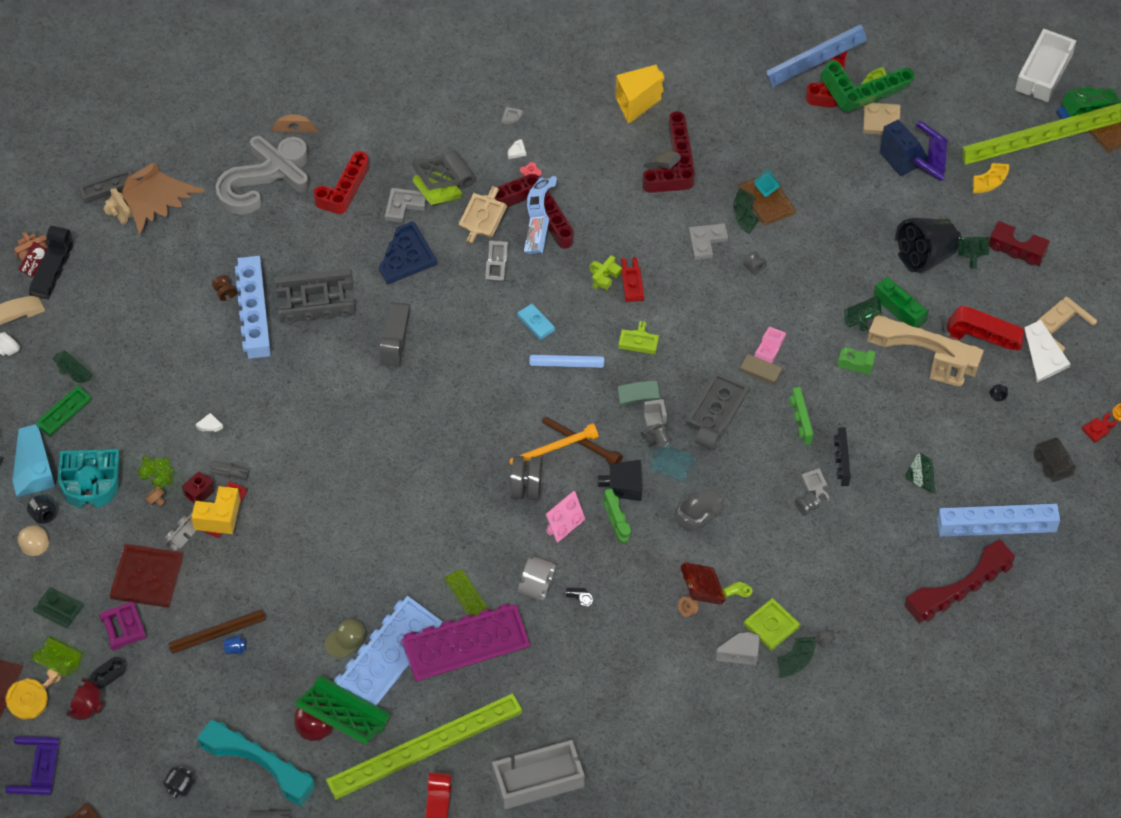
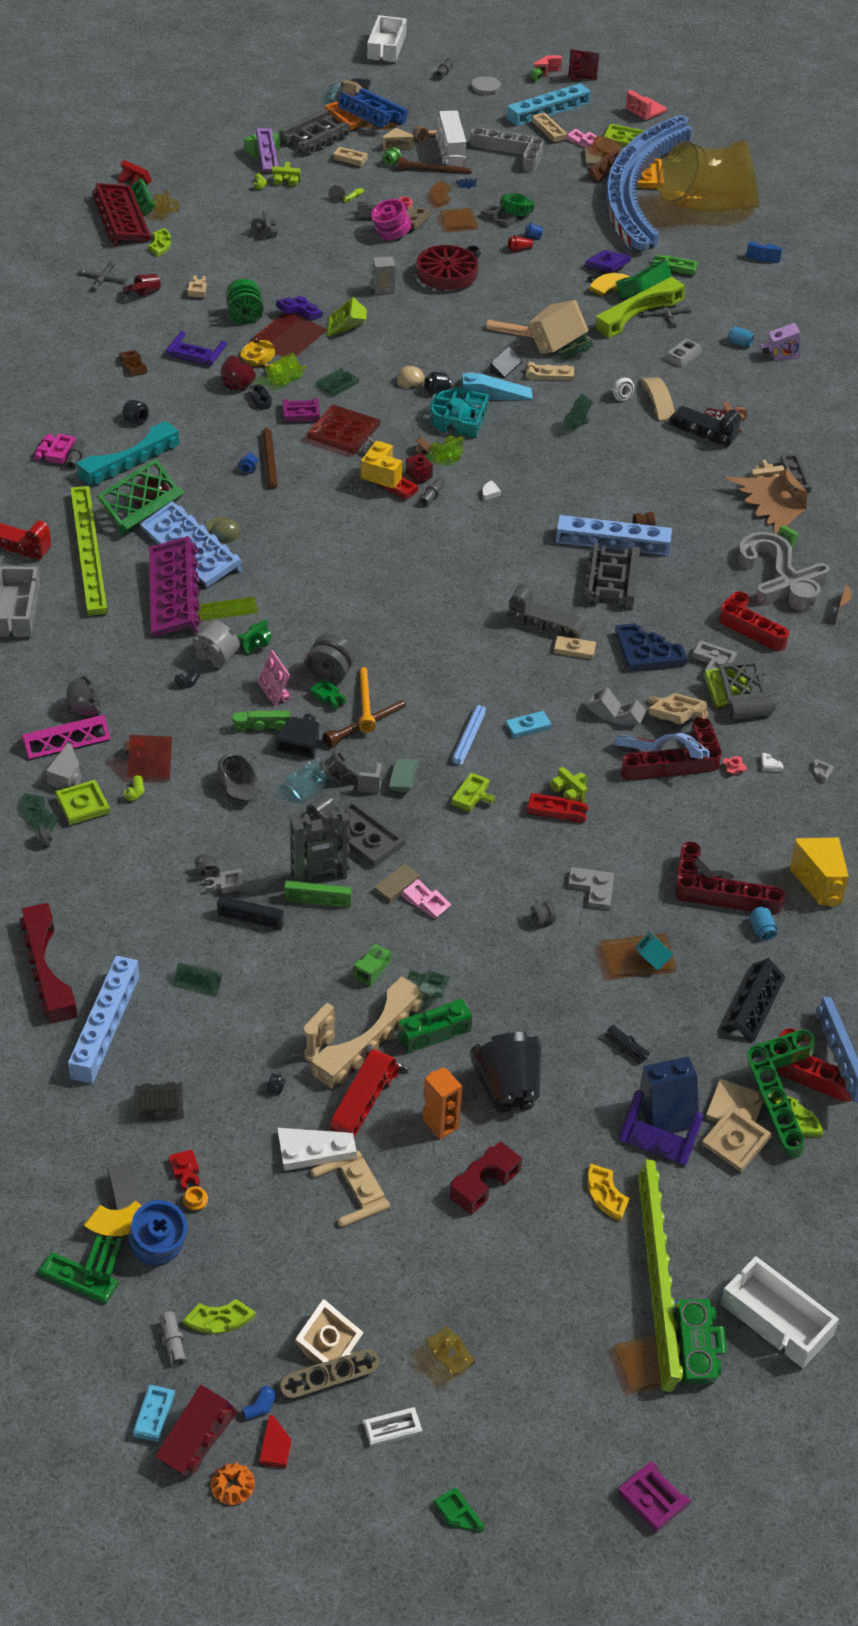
camera: 105 degrees right, 10 degrees down
(63, 411) = (537, 410): green plate -> none
(211, 175) = (788, 534): none -> bright green tile
(421, 308) = (575, 647): none -> tan plate
(513, 560) = (256, 636): none -> green hips
(558, 479) = (327, 692): none -> green plate
(649, 666) = (81, 696): none -> dark grey cylinder
(702, 126) = (763, 923): none -> dark azure brick
(709, 684) = (65, 729): none -> dark pink fence
(744, 210) = (612, 927): clear green tile -> none
(777, 407) = (318, 833): none -> dark grey fence
(779, 123) = (749, 995): none -> black fence
(856, 188) = (627, 1044): none -> black pin
(914, 108) = (736, 1139): none -> tan plate
(973, 248) = (490, 1120): clear green plate -> none
(983, 270) = (442, 1102): none -> orange piece

